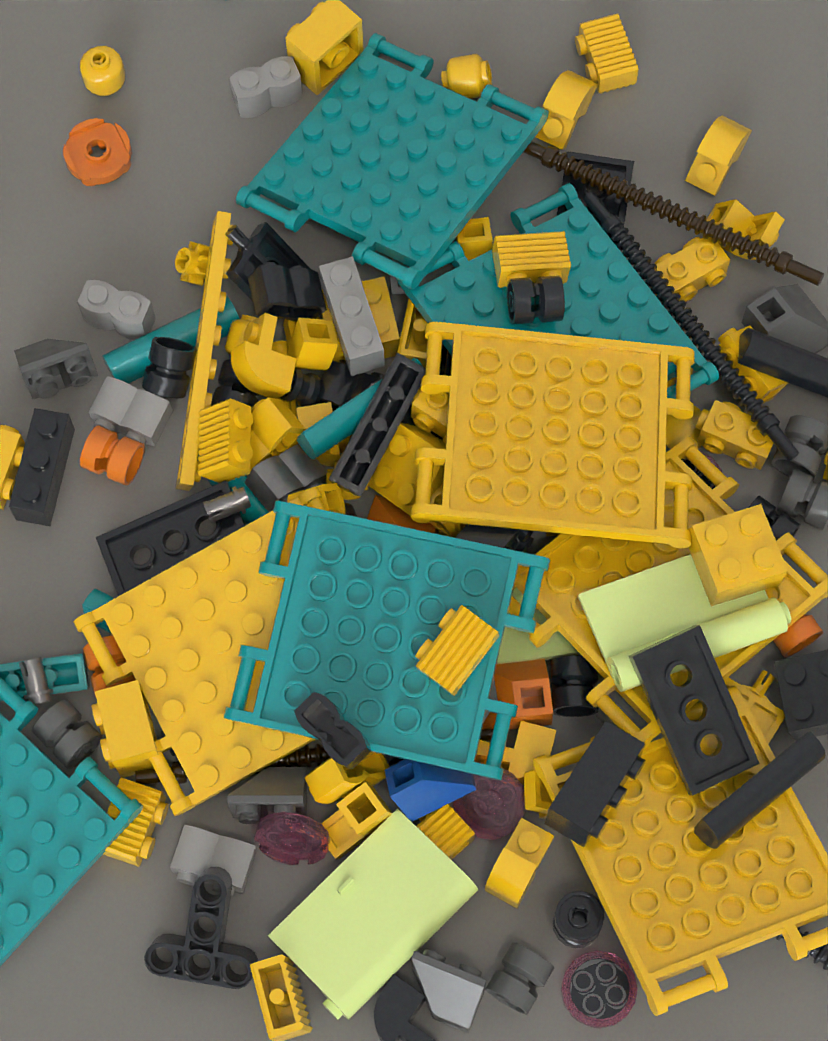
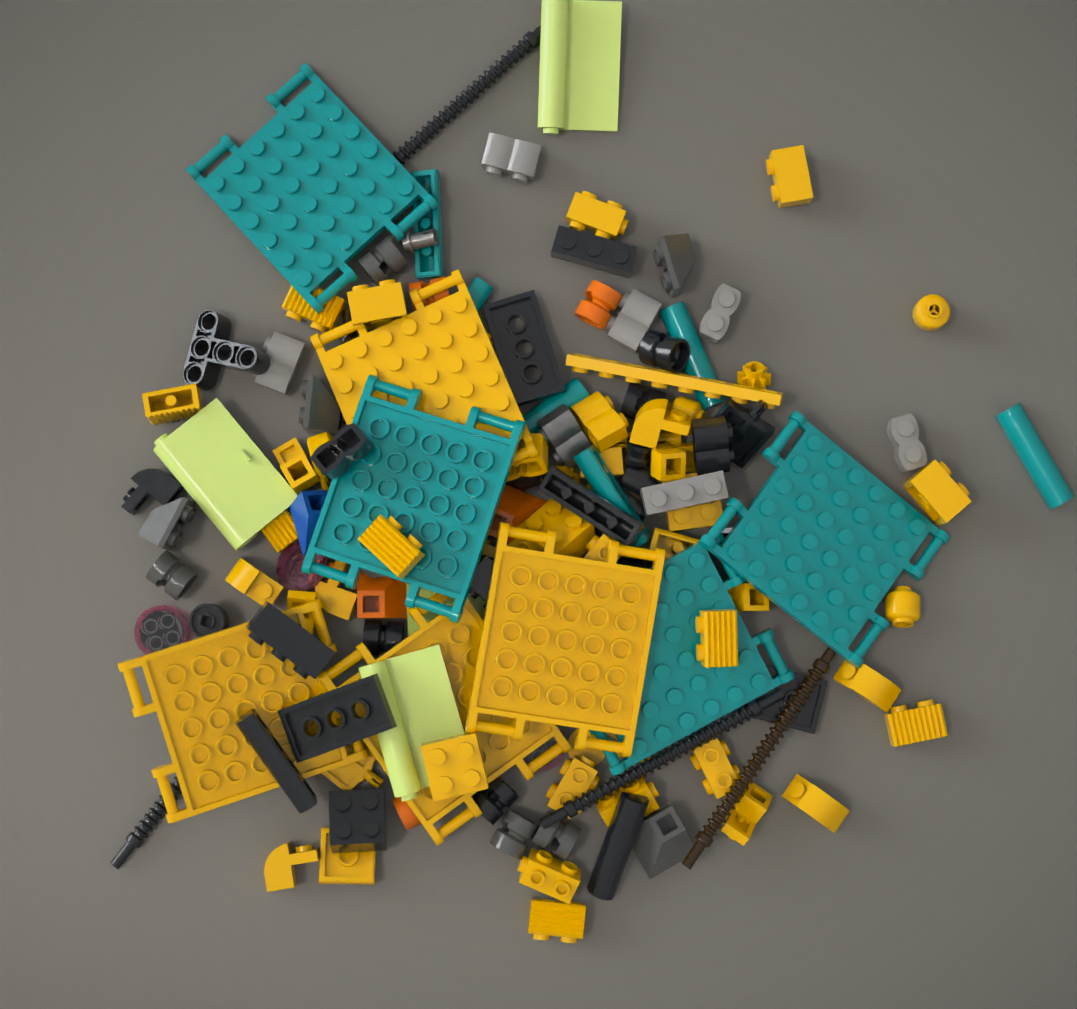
camera: 90 degrees right, 15 degrees up
(100, 169) = (868, 292): orange plate -> none
(225, 441) = (593, 390): yellow brick -> none
(227, 504) = (542, 389): flat silver pin -> none
(292, 838) = (285, 420): clear pink tile -> none
(548, 299) = (679, 637): black wheel -> none

